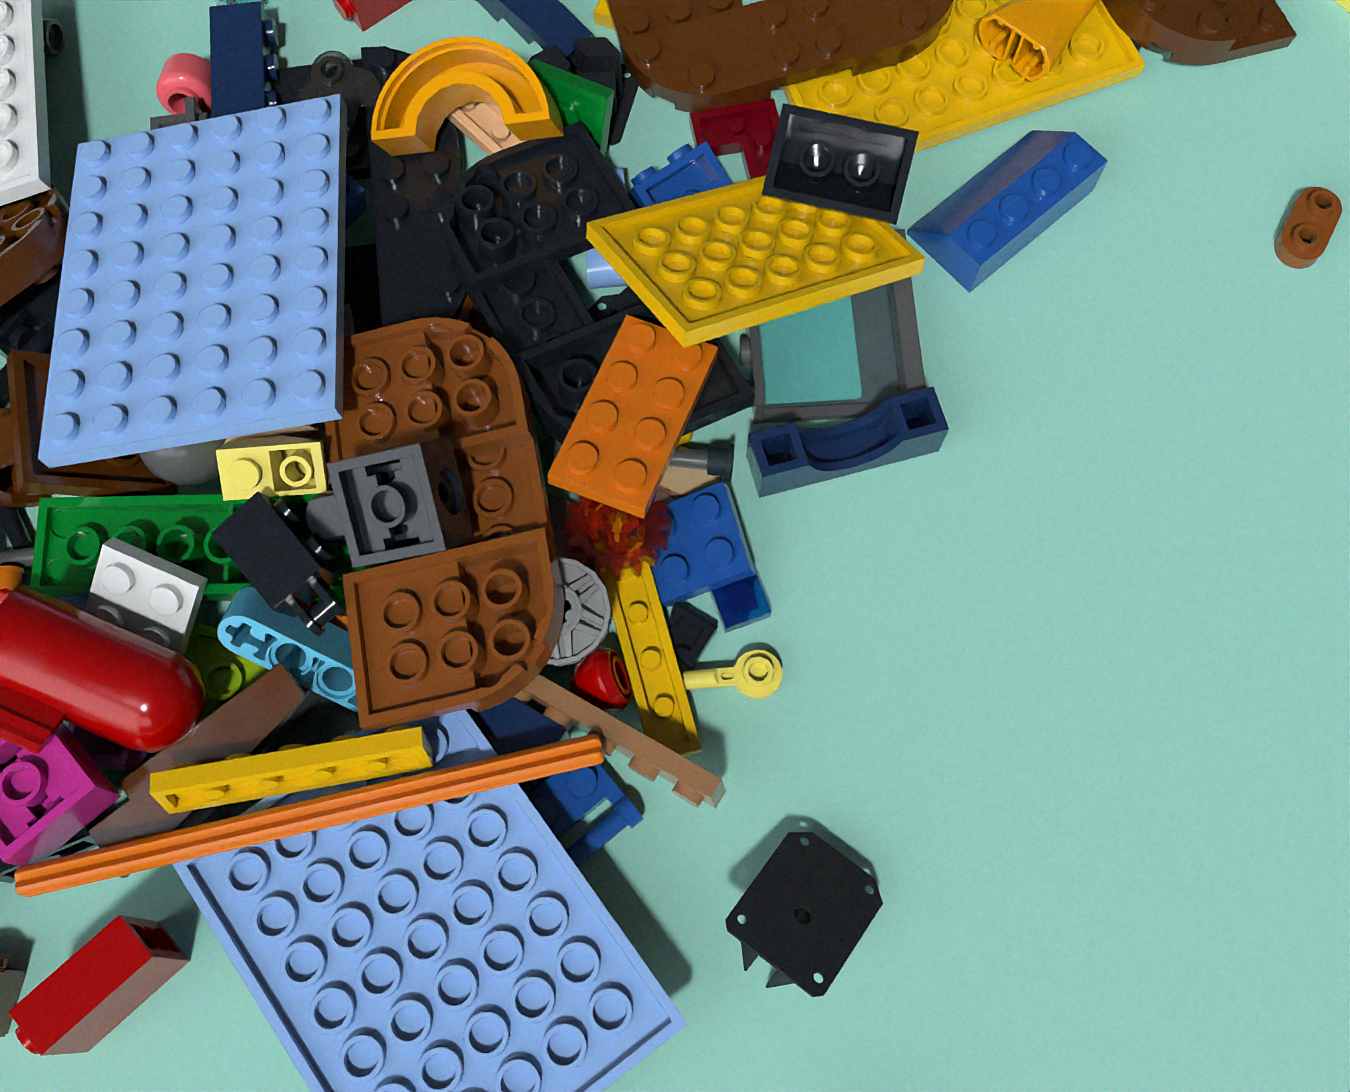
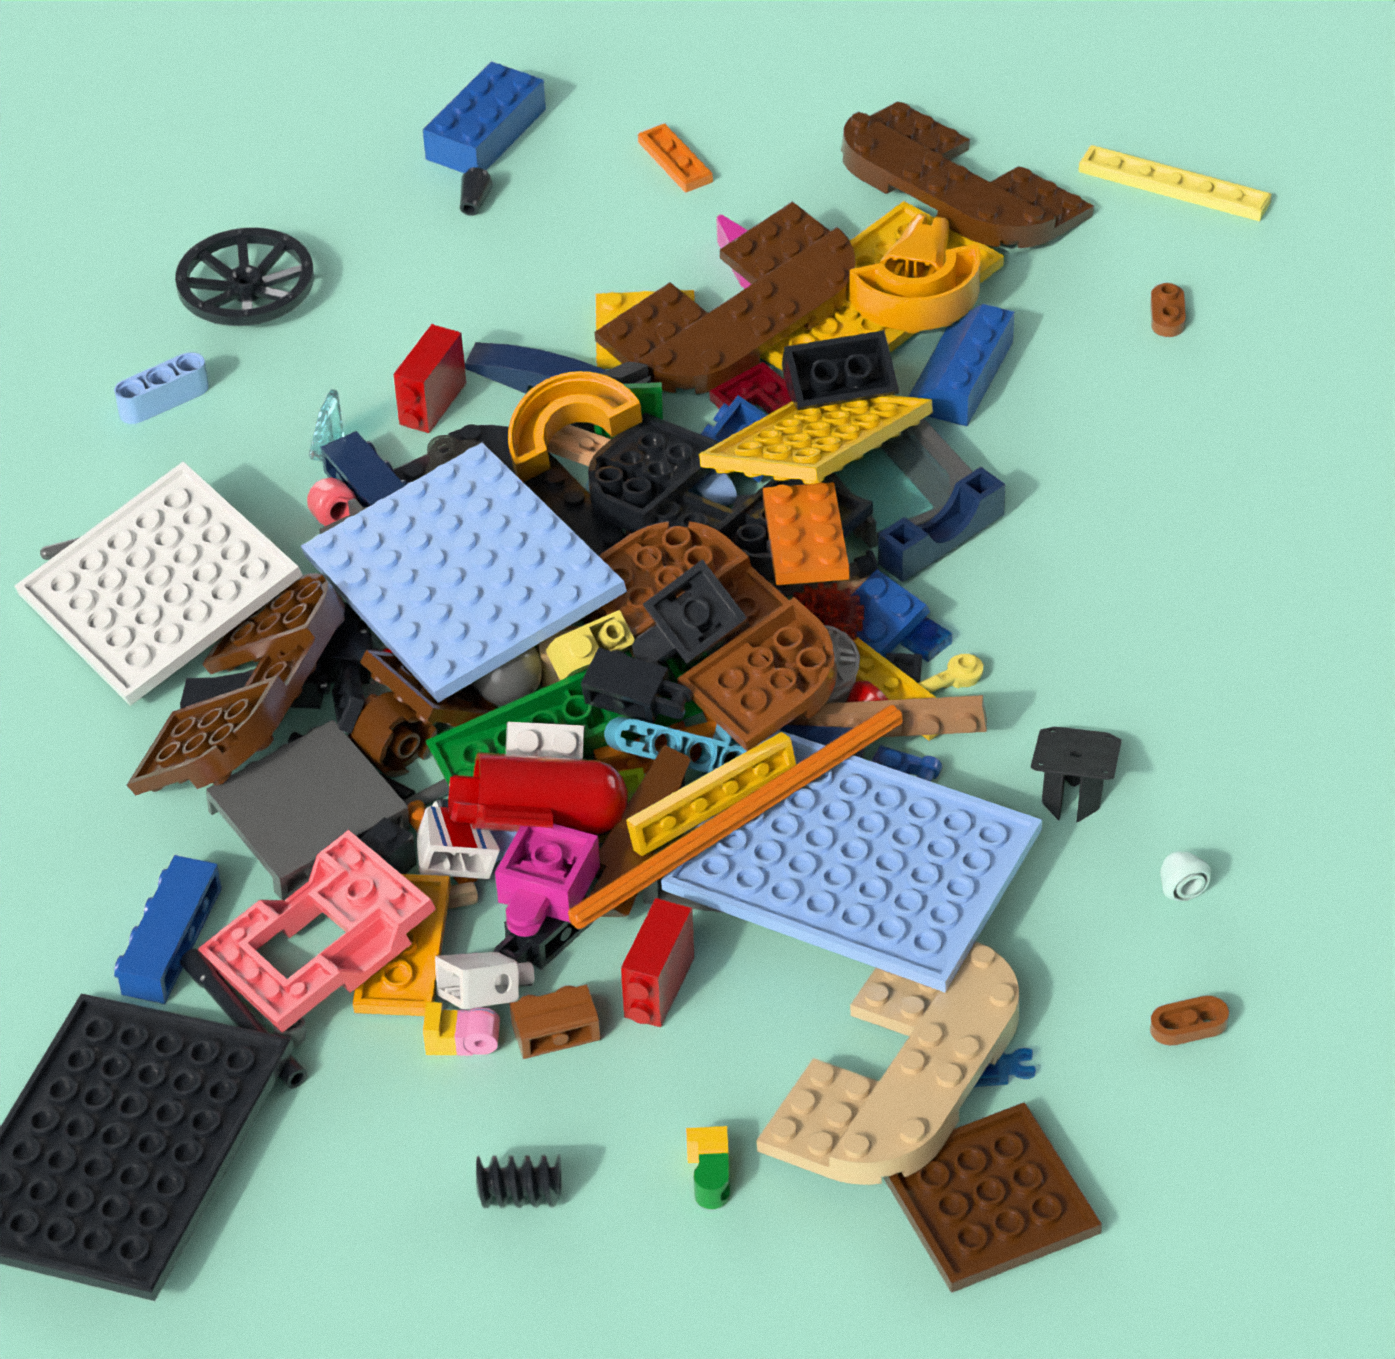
camera: 25 degrees left, 25 degrees down
(1002, 99) = (920, 301): none -> light orange brick

